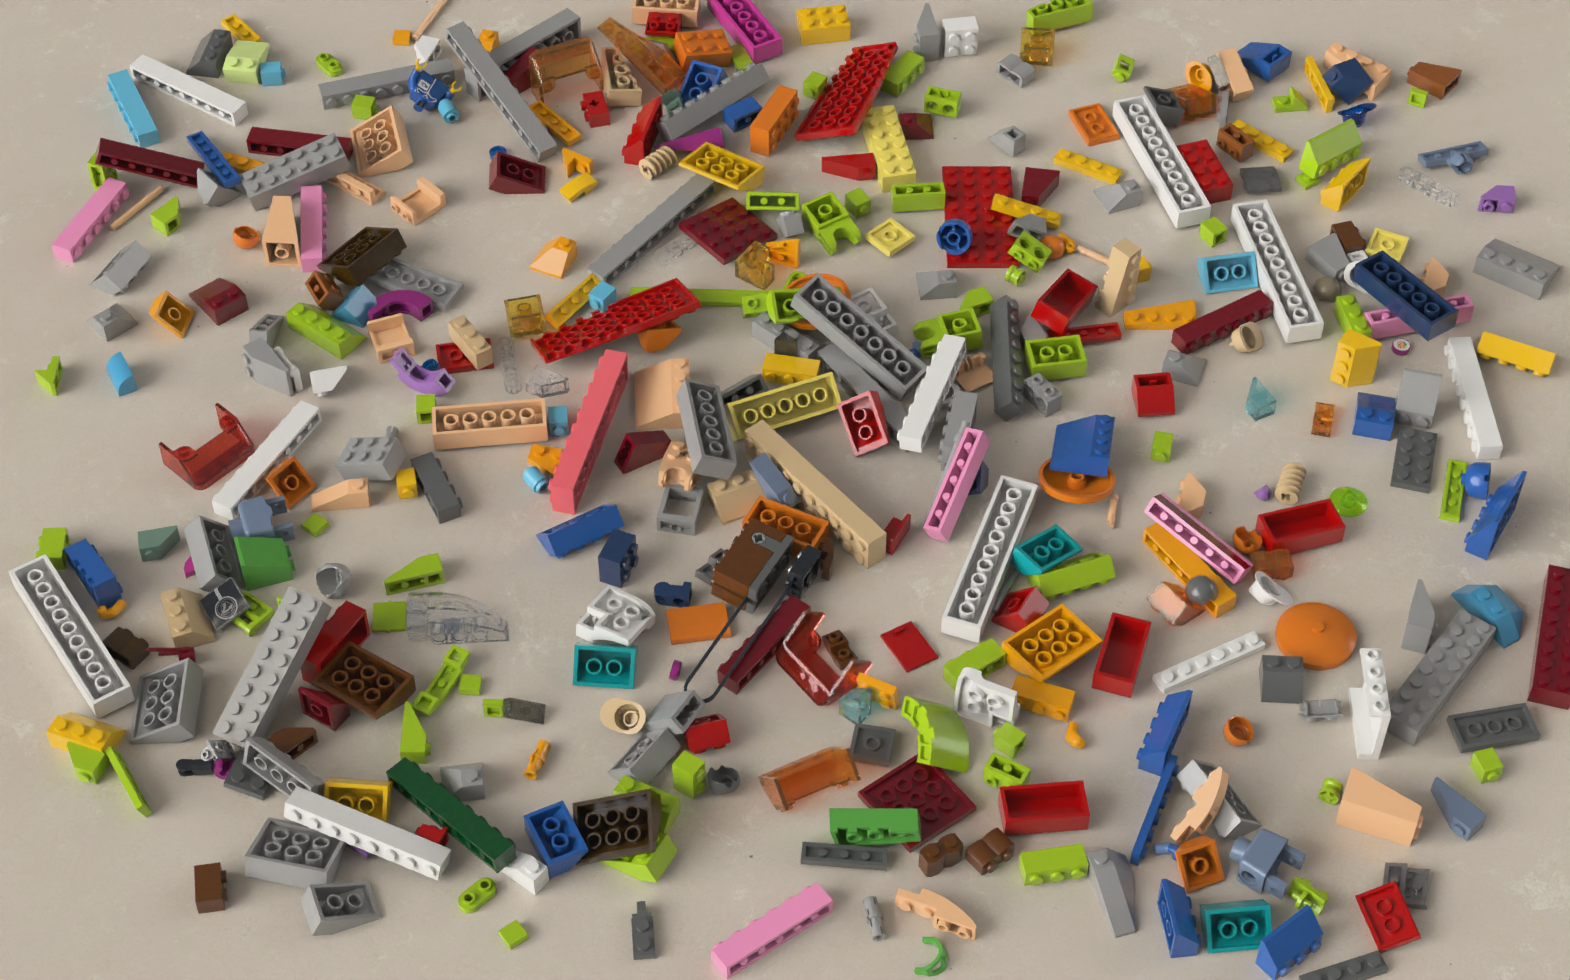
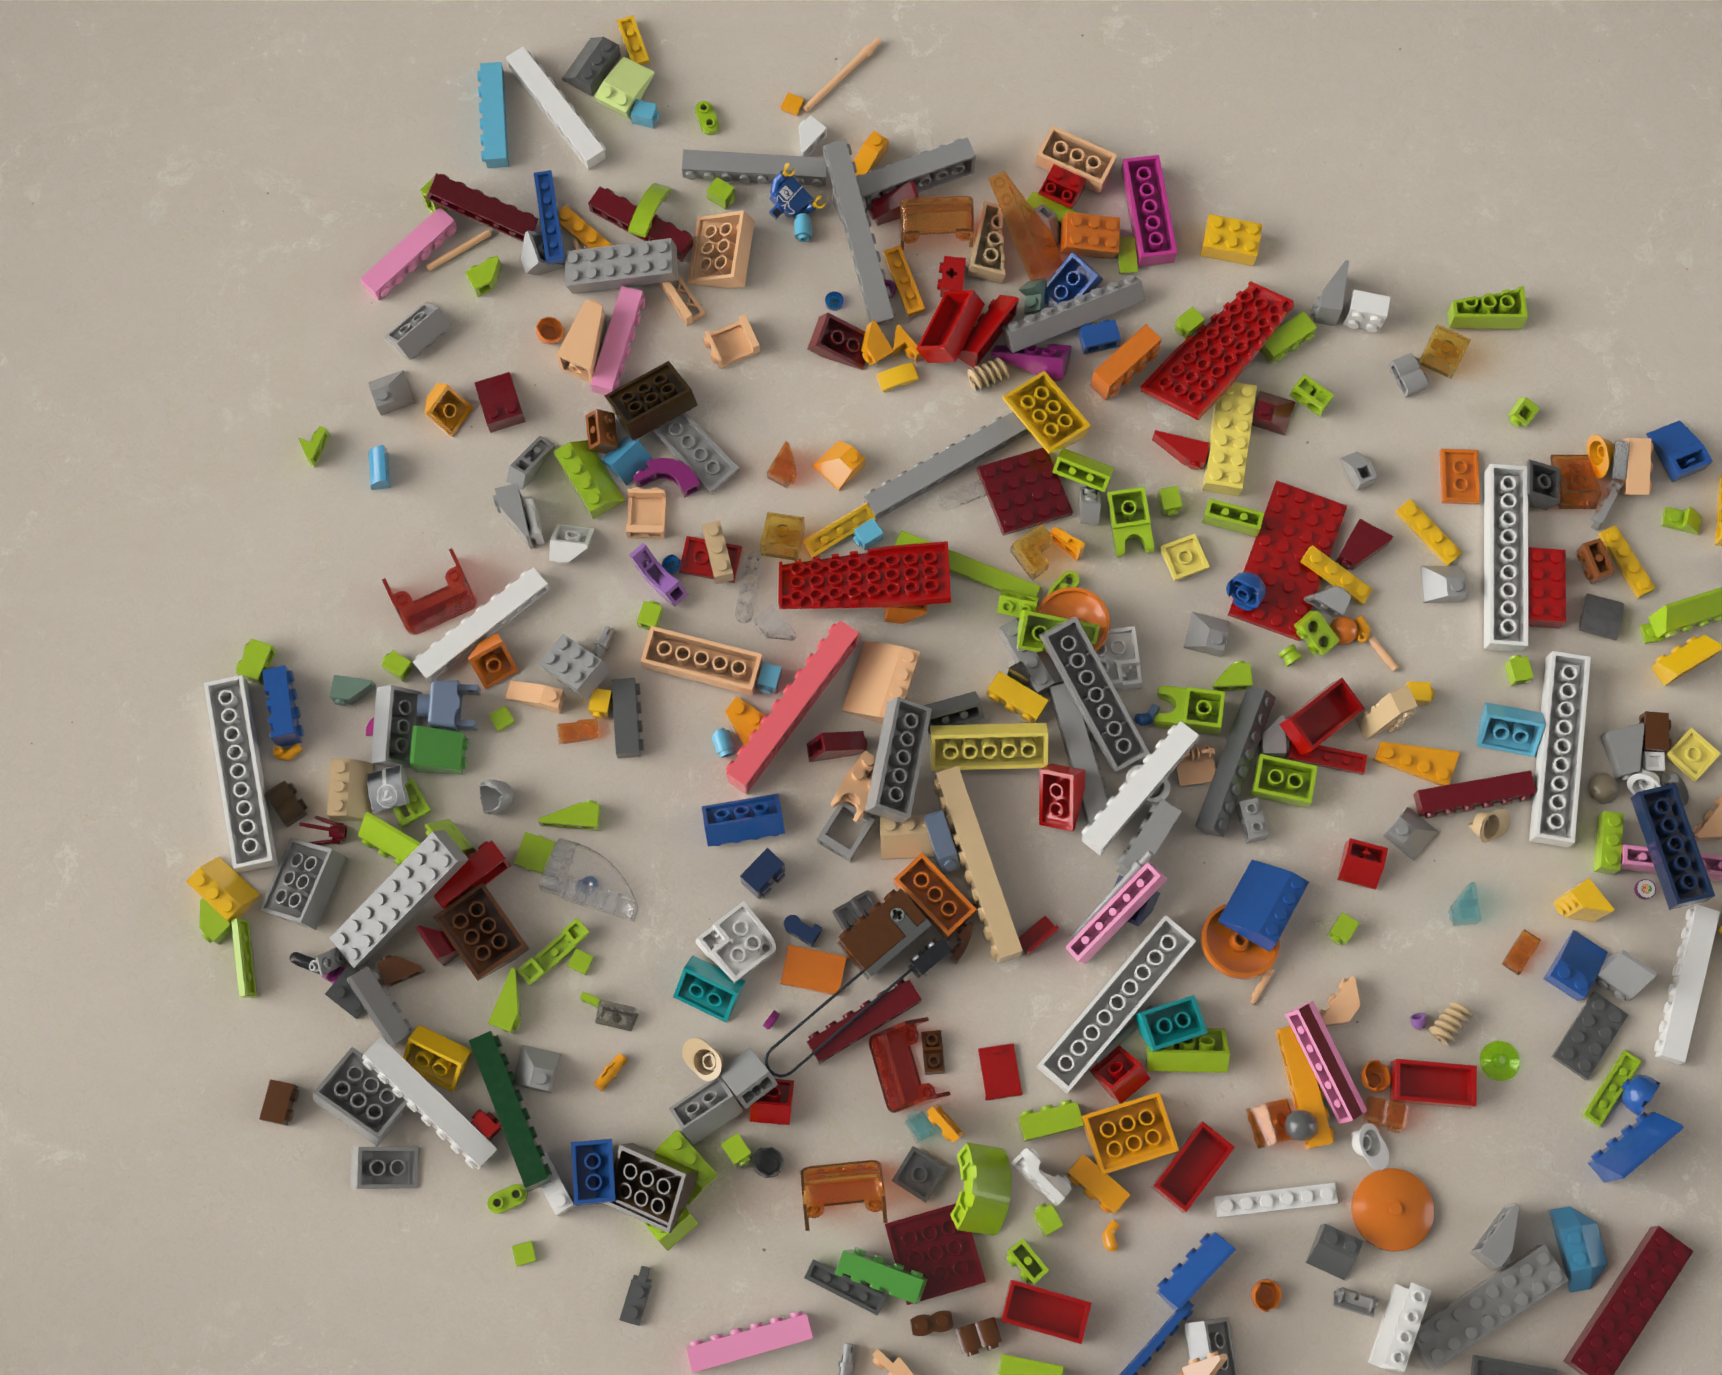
camera: 20 degrees right, 25 degrees up
(195, 507) = (397, 665): none -> lime brick
(235, 637) = (386, 838): none -> lime slope
(302, 130) = (647, 209): none -> lime slope
(396, 512) = (577, 731): none -> clear orange slope
(504, 273) = (783, 467): none -> clear orange slope
(549, 167) = (875, 345): none -> light orange slope
(610, 135) = (950, 326): none -> red piece

